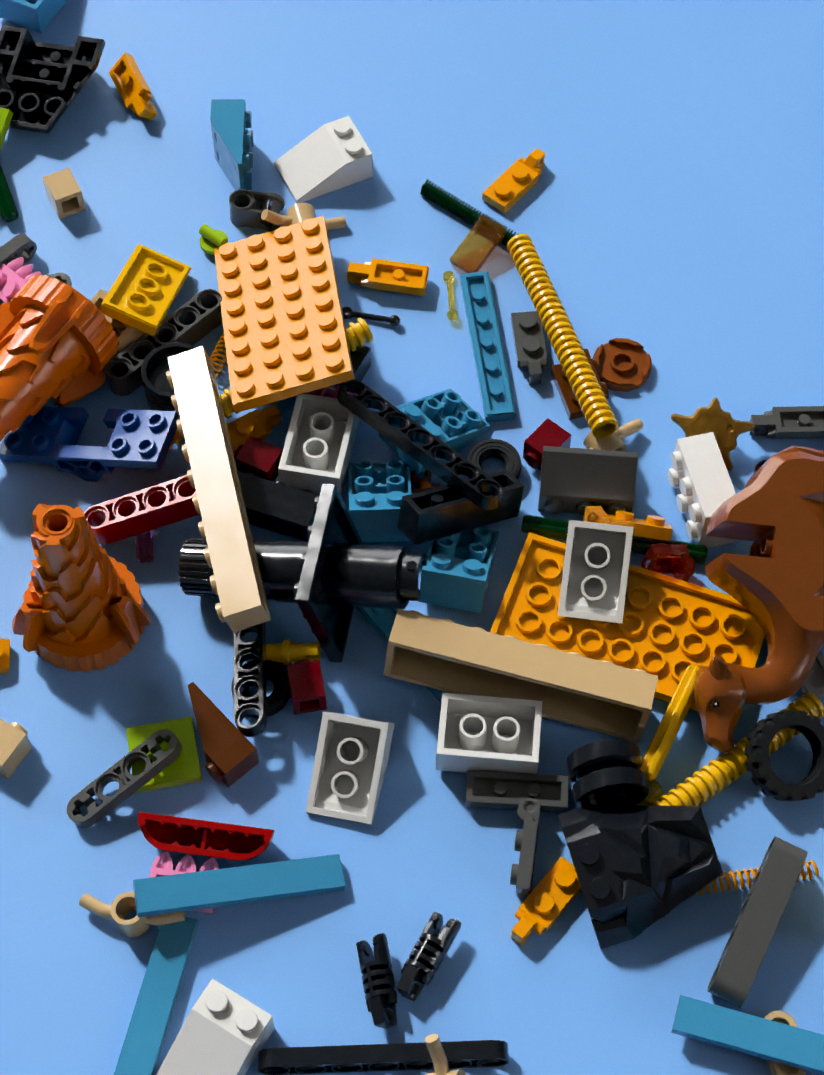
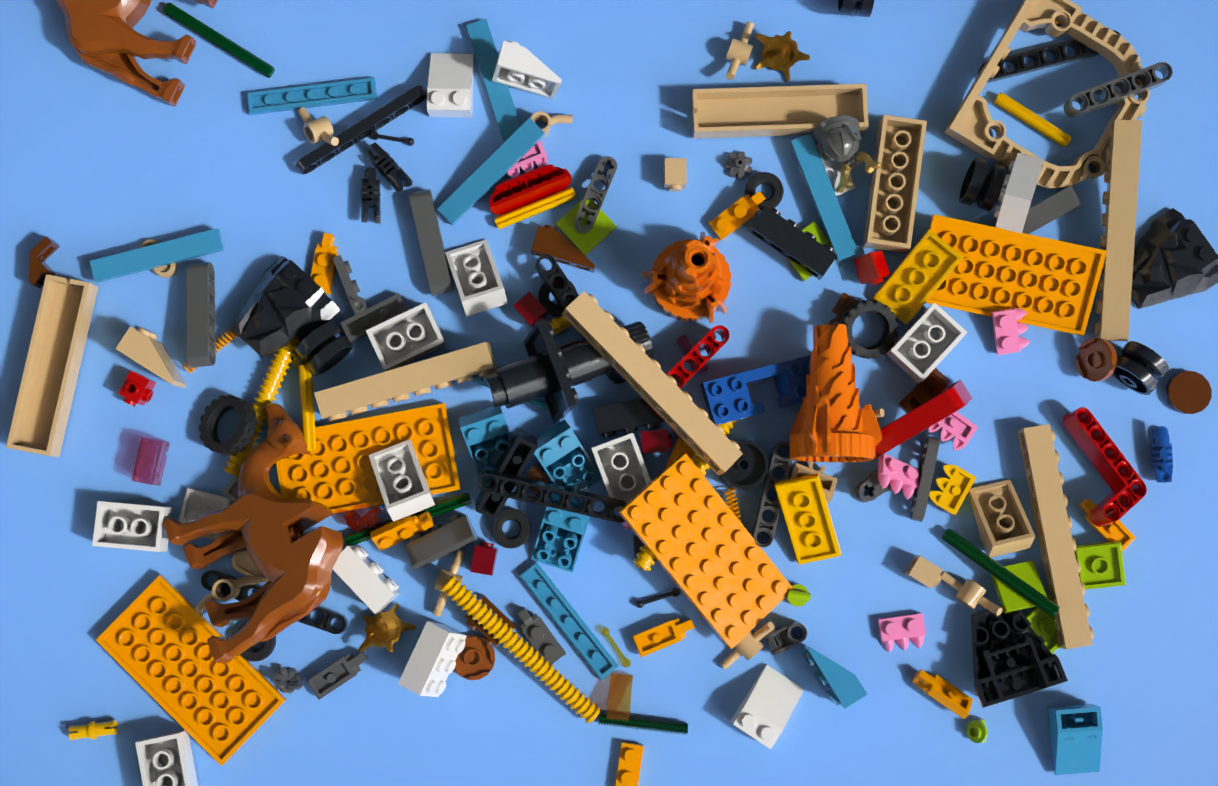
camera: 145 degrees right, 25 degrees up
(31, 150) = (971, 593): none -> tan piece
(107, 1003) = (524, 71): none -> white slope
(126, 43) = (977, 731): none -> lime plate
(129, 163) = (901, 629): none -> bright pink plate
(213, 812) = (535, 208): none -> yellow axle
(325, 1005) = (375, 136): none -> black hinge
(381, 846) = (431, 242): none -> dark grey beam
(669, 367) = (432, 659): none -> white brick

